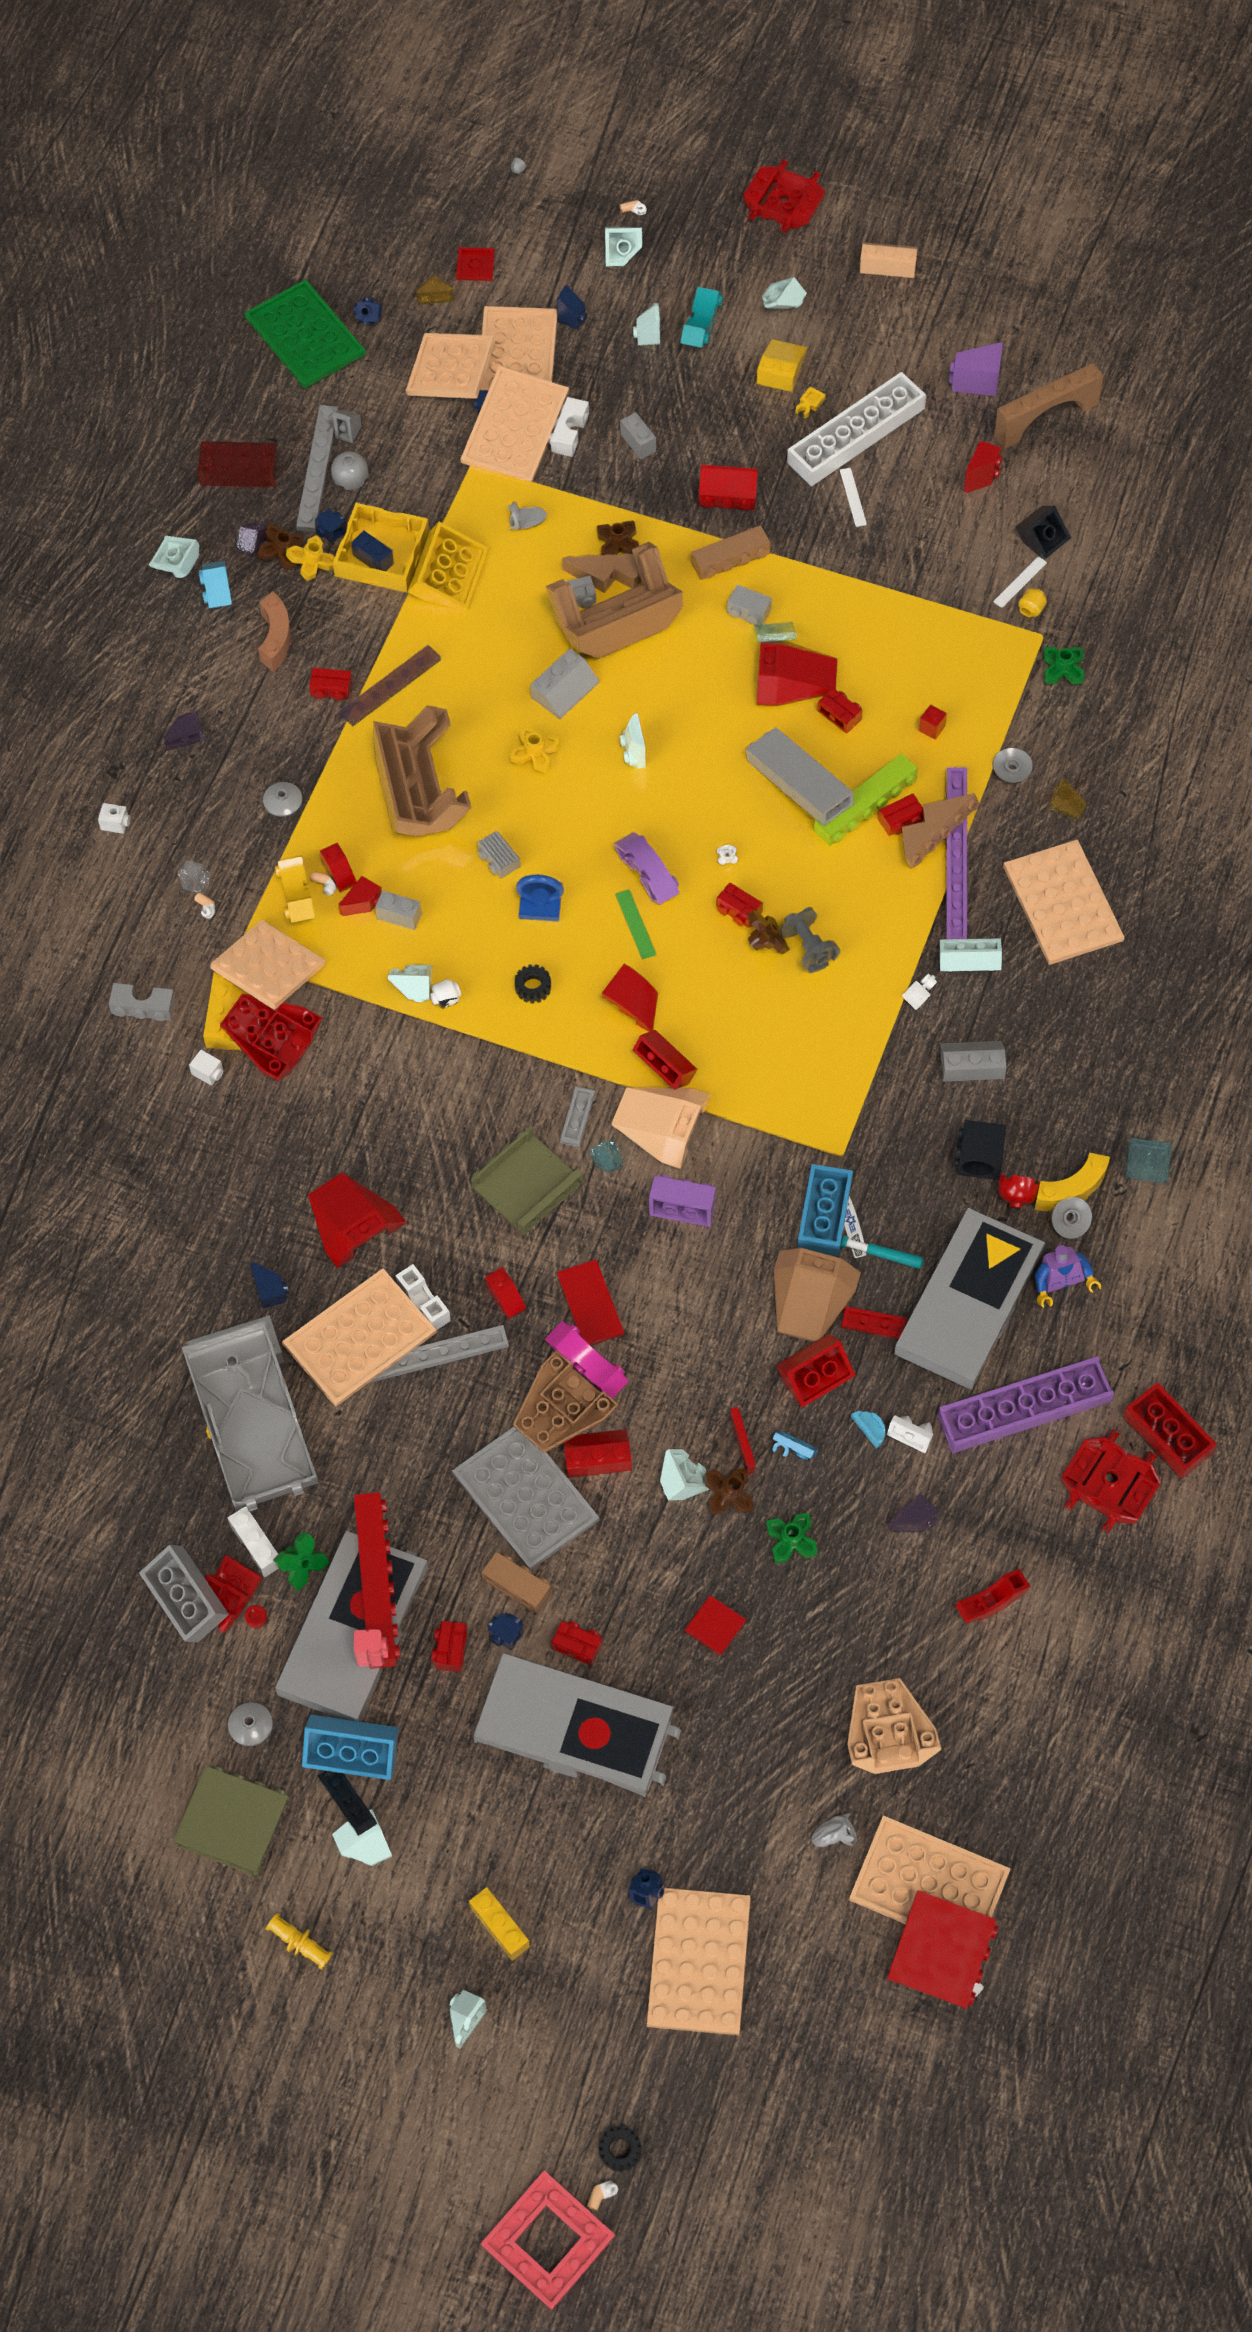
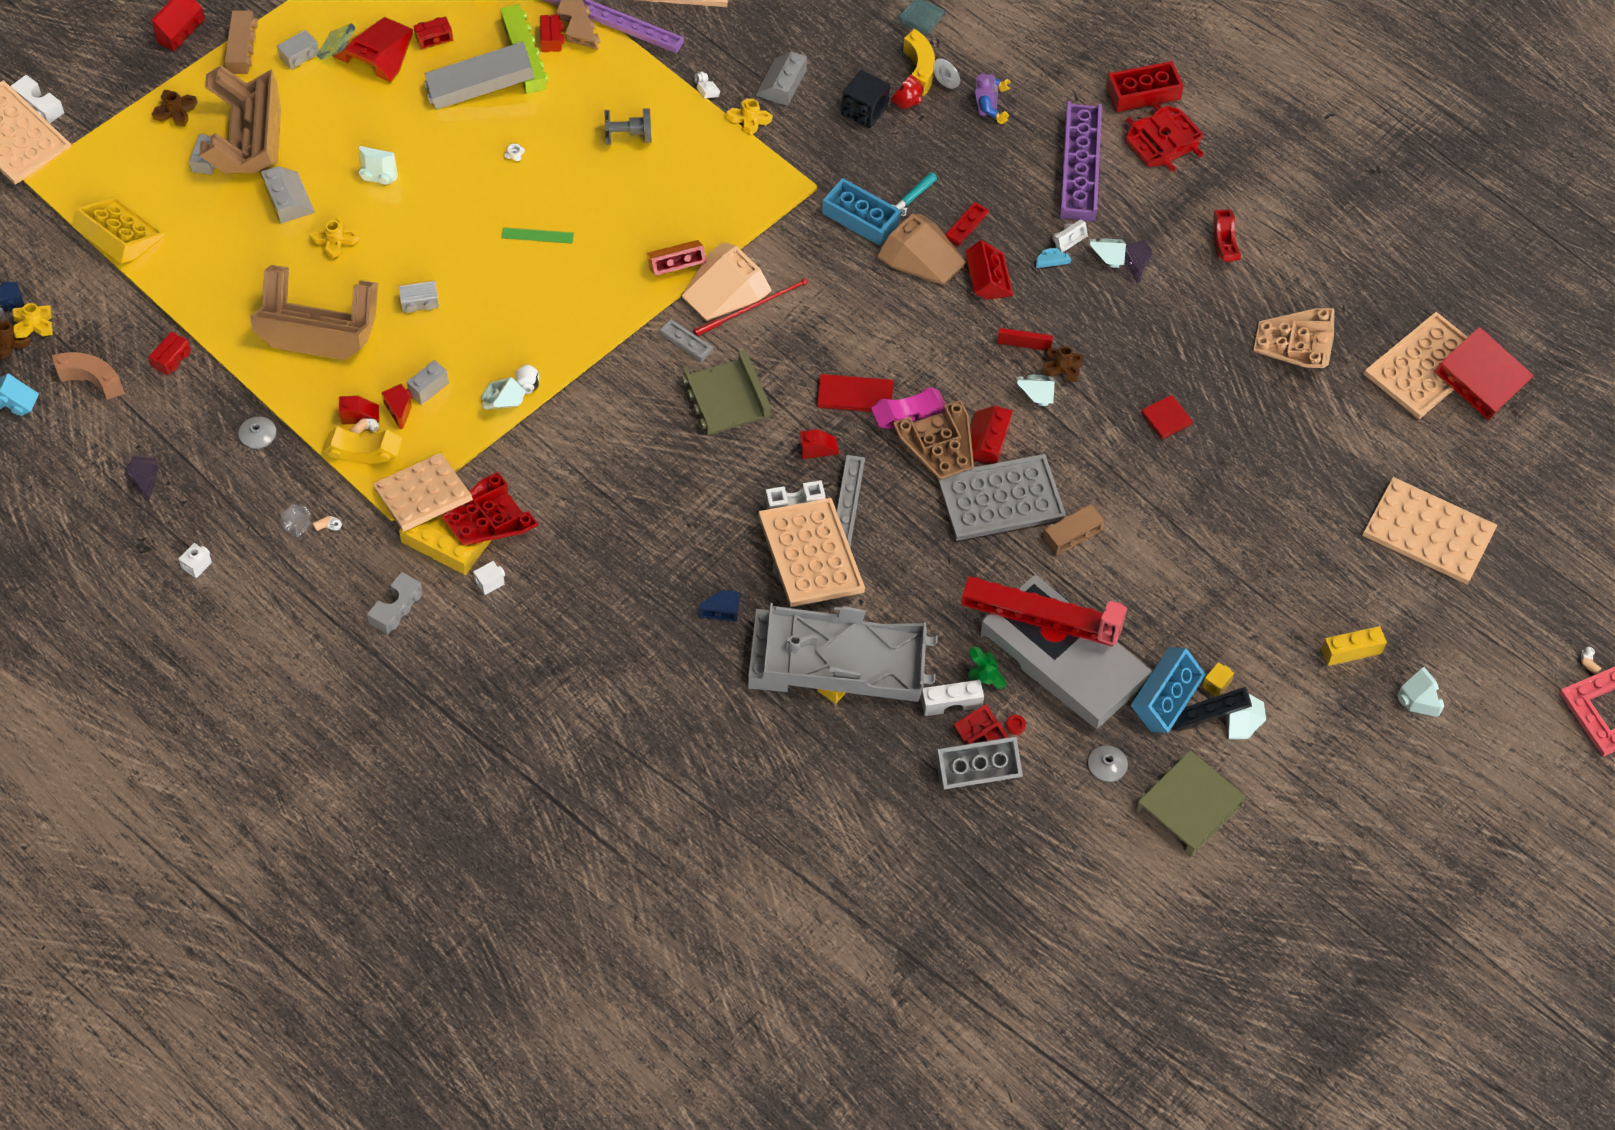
camera: 70 degrees left, 5 degrees down
(299, 1941) = (1314, 790): yellow piece -> none
(350, 1216) = (691, 526): red wedge -> none
(372, 552) = (62, 274): dark blue brick -> none
(390, 685) = (202, 312): tile -> none
(394, 1797) = (1218, 679): none -> yellow brick
(398, 531) = (60, 268): yellow tile -> none
(450, 1646) = (1103, 590): red brick -> none
(505, 1630) = (1111, 552): dark blue brick -> none
(525, 517) = (105, 159): light grey piece -> none
(532, 973) = (552, 328): black tyre -> none
(539, 897) = (477, 284): blue tile -> none
(575, 1725) = (1214, 531): light grey piece -> none
(577, 1642) = (1142, 508): red brick -> none
(604, 569) = (199, 121): medium nougat slope -> none
(607, 1156) = (735, 333): clear light blue brick -> none
(616, 1137) = (709, 326): none -> red piece
(624, 2163) = (1561, 625): black tyre -> none
(633, 996) = (605, 257): red slope -> none
(638, 435) = (81, 58): light grey brick -> none
(646, 1888) = (1364, 537): dark blue brick -> none
(654, 875) = (496, 198): medium lavender brick -> none
(682, 1200) = (805, 294): medium lavender brick -> none
(737, 904) = (566, 160): red brick -> none
(766, 933) = (604, 152): reddish brown plant -> none
(788, 1441) = (1050, 305): dark azure plate -> none
(791, 1538) = (1119, 339): green plant -> none
(834, 1831) = (1365, 405): light grey piece -> none
(900, 1048) = (749, 115): none -> yellow plant
(910, 1479) = (1110, 250): none -> light aqua slope
(969, 1298) = (984, 154): light grey piece -> none
(970, 954) = (696, 42): light aqua brick -> none

